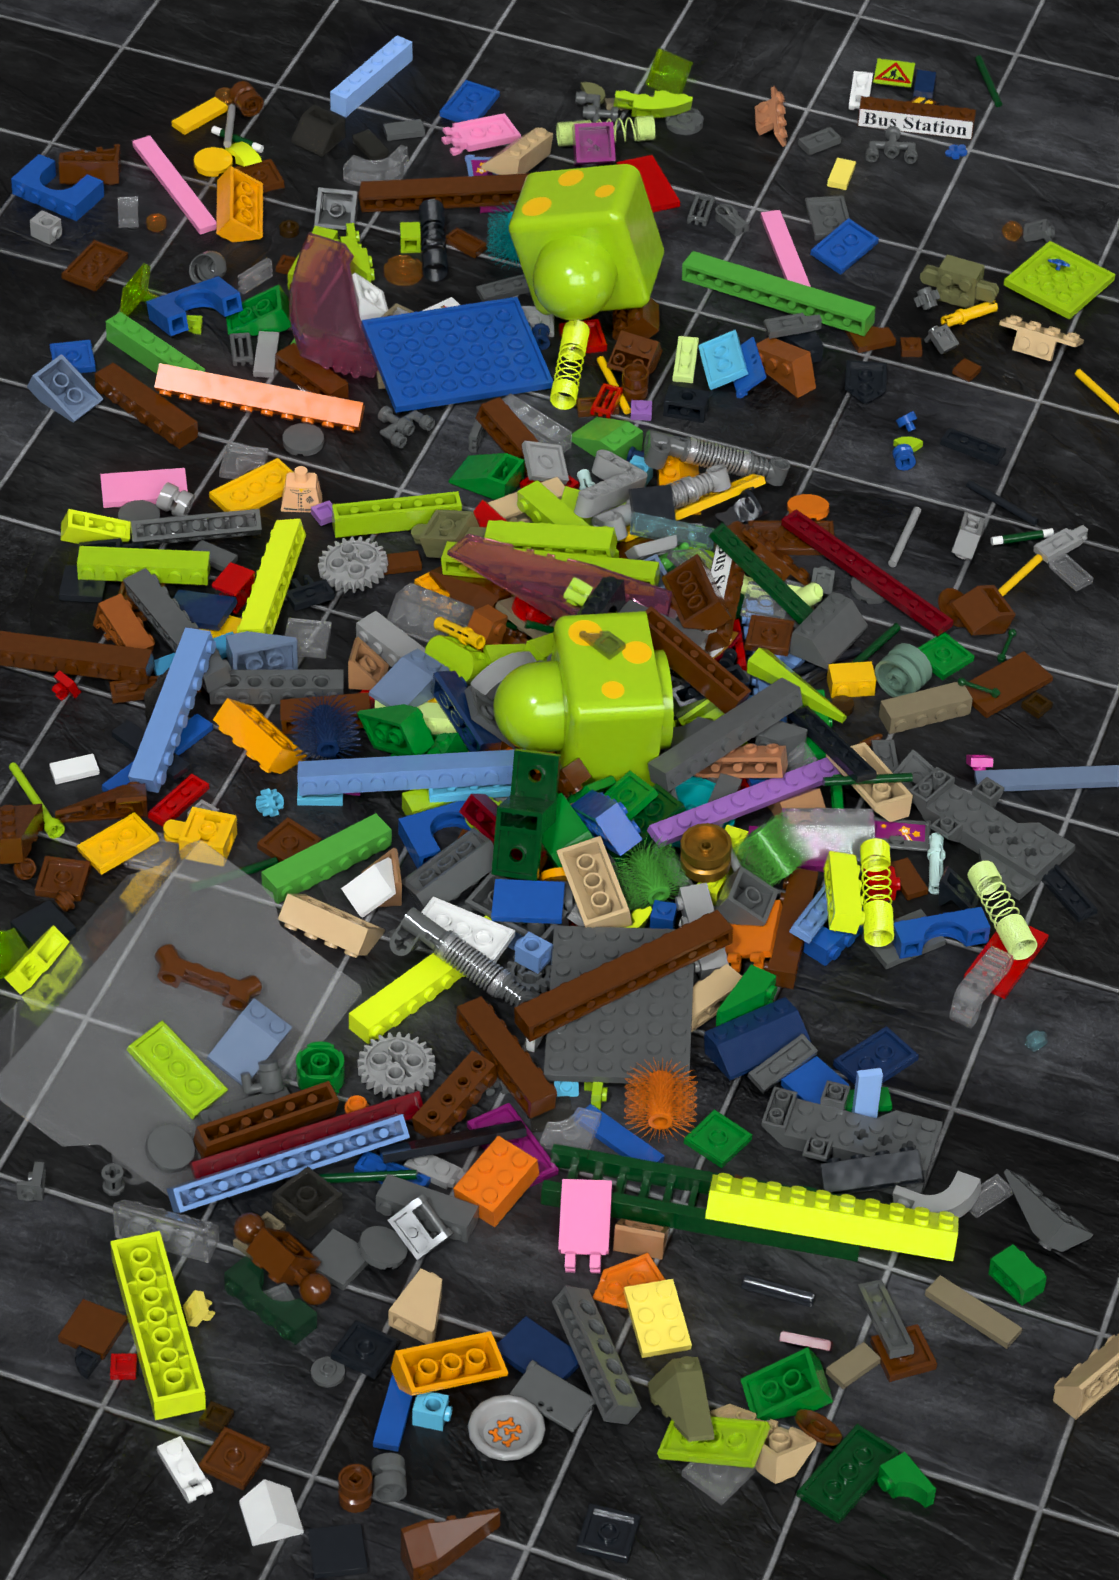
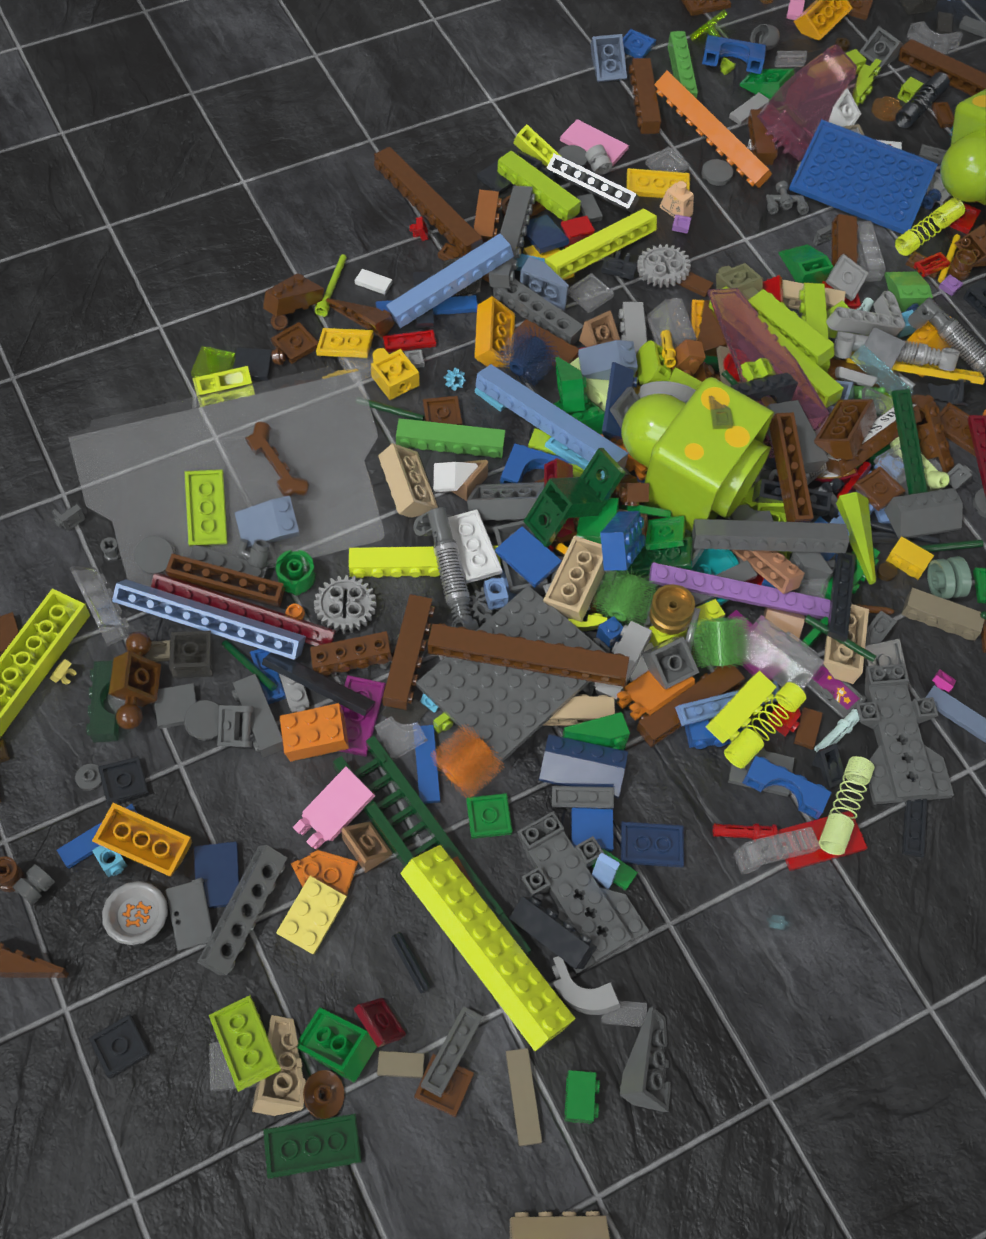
camera: 40 degrees right, 15 degrees up
(242, 358) = (740, 96): dark grey tile -> none
(390, 514) = (717, 248): lime brick -> none
(418, 1307) = (182, 780): tan slope -> none
(683, 1398) = (257, 992): olive wedge -> none
(903, 1478) = (338, 1186): green arch -> none
(936, 996) = (740, 831): none -> red pin

